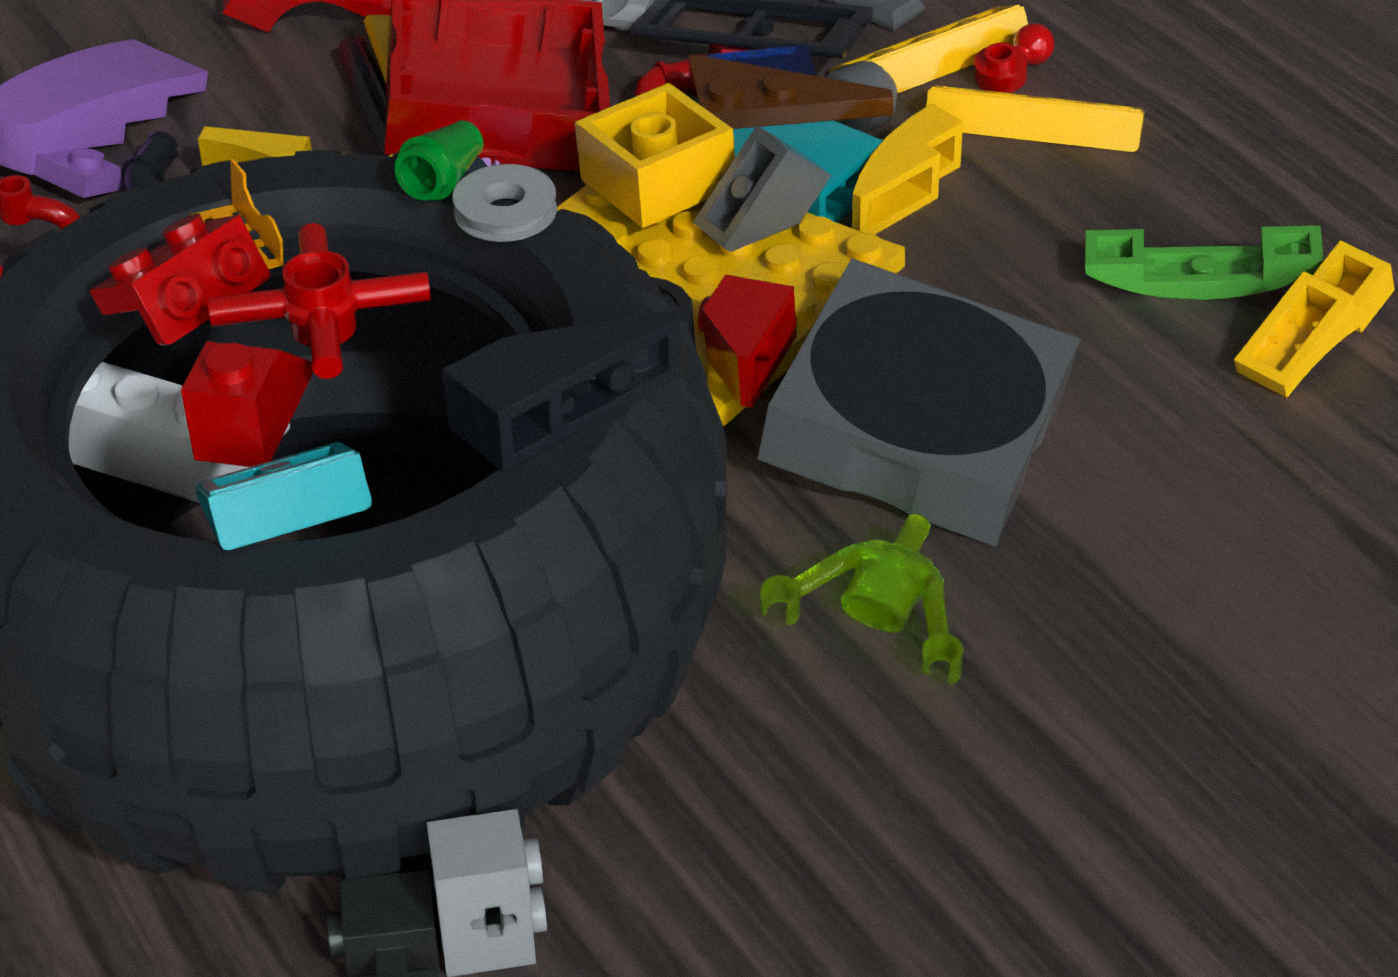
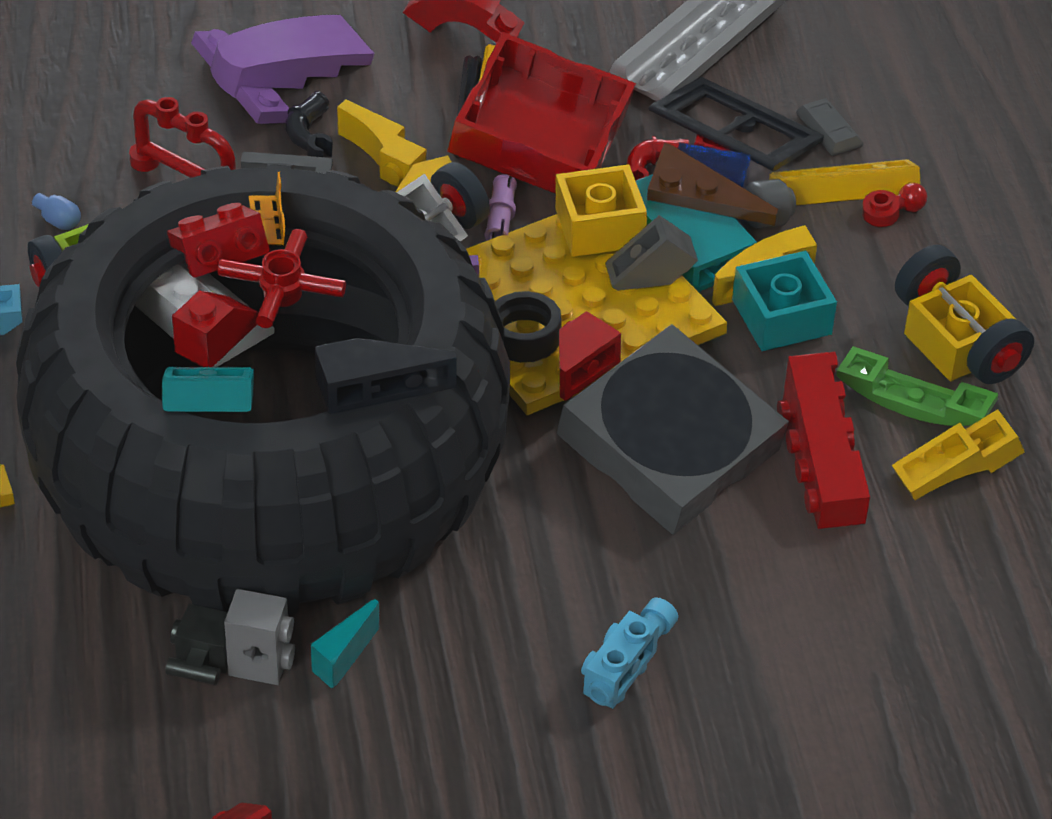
camera: 20 degrees right, 5 degrees up
(436, 161) = (395, 206): green cone -> none
(504, 223) = (425, 259): light grey piece -> none
(610, 869) = (342, 645): none -> teal slope
(882, 591) = (581, 541): clear neon green piece -> none
(962, 200) = (784, 300): none -> teal brick
(1041, 118) = (861, 241): yellow slope -> none
(1053, 719) = (626, 652): none -> medium azure brick
(1139, 354) = (823, 442): none -> red wedge
(1209, 159) = (959, 320): none -> brick

